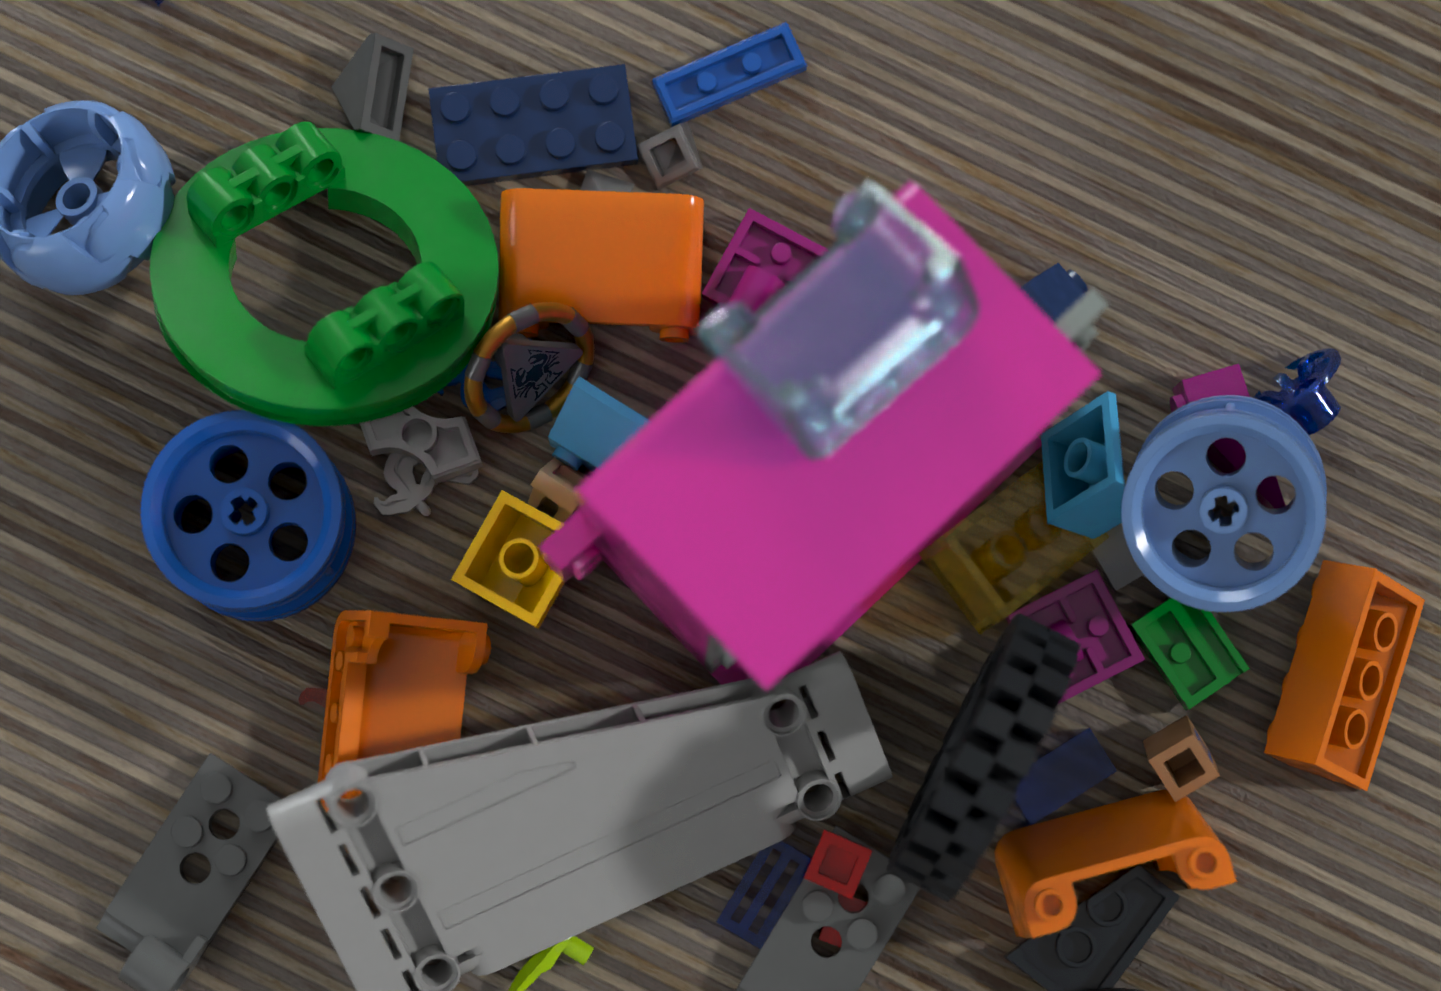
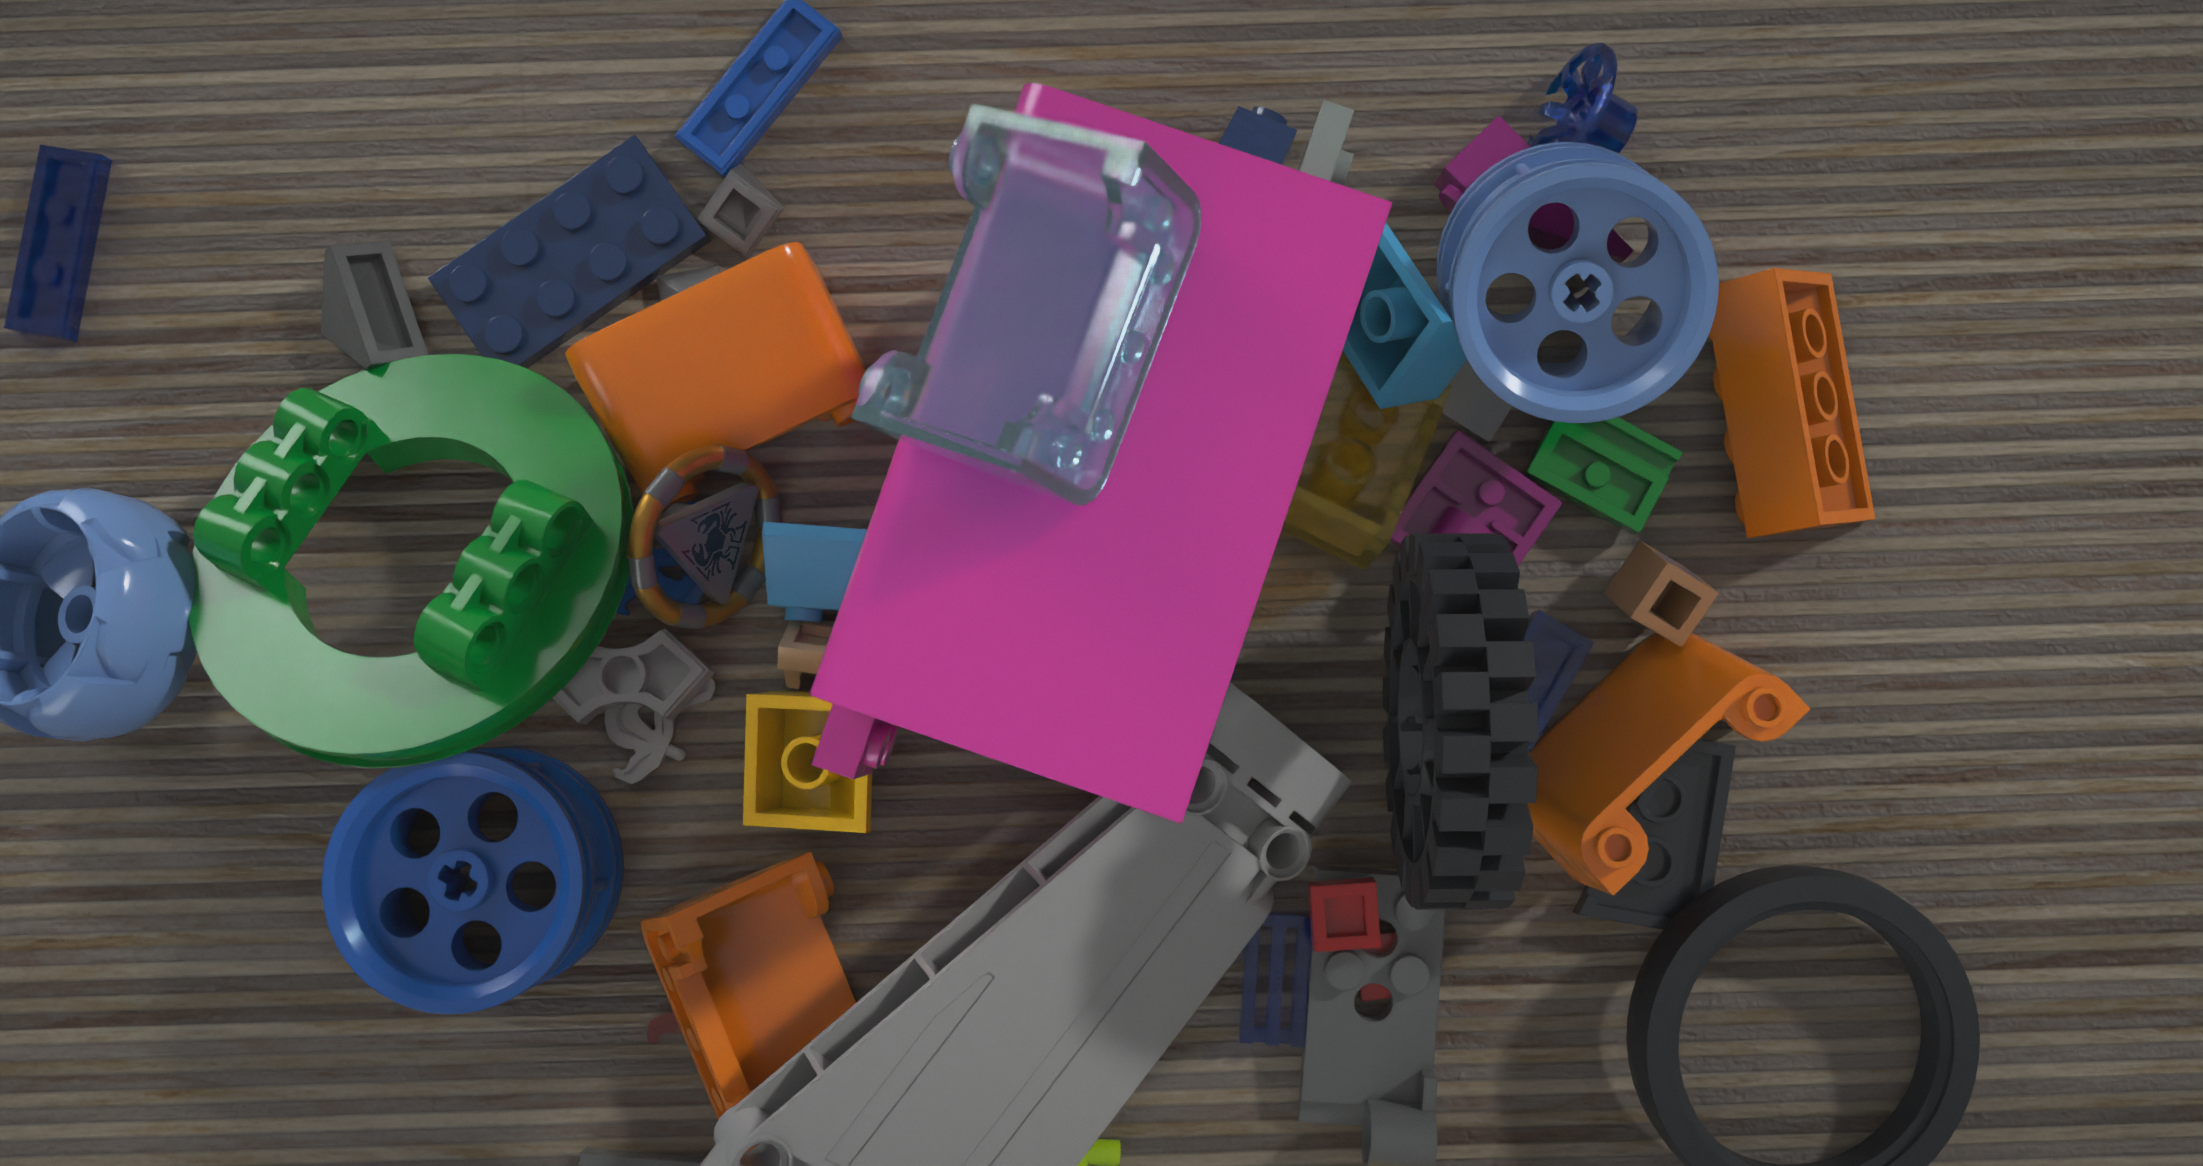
camera: 20 degrees left, 5 degrees up
(759, 262) = (901, 283): magenta plate -> none

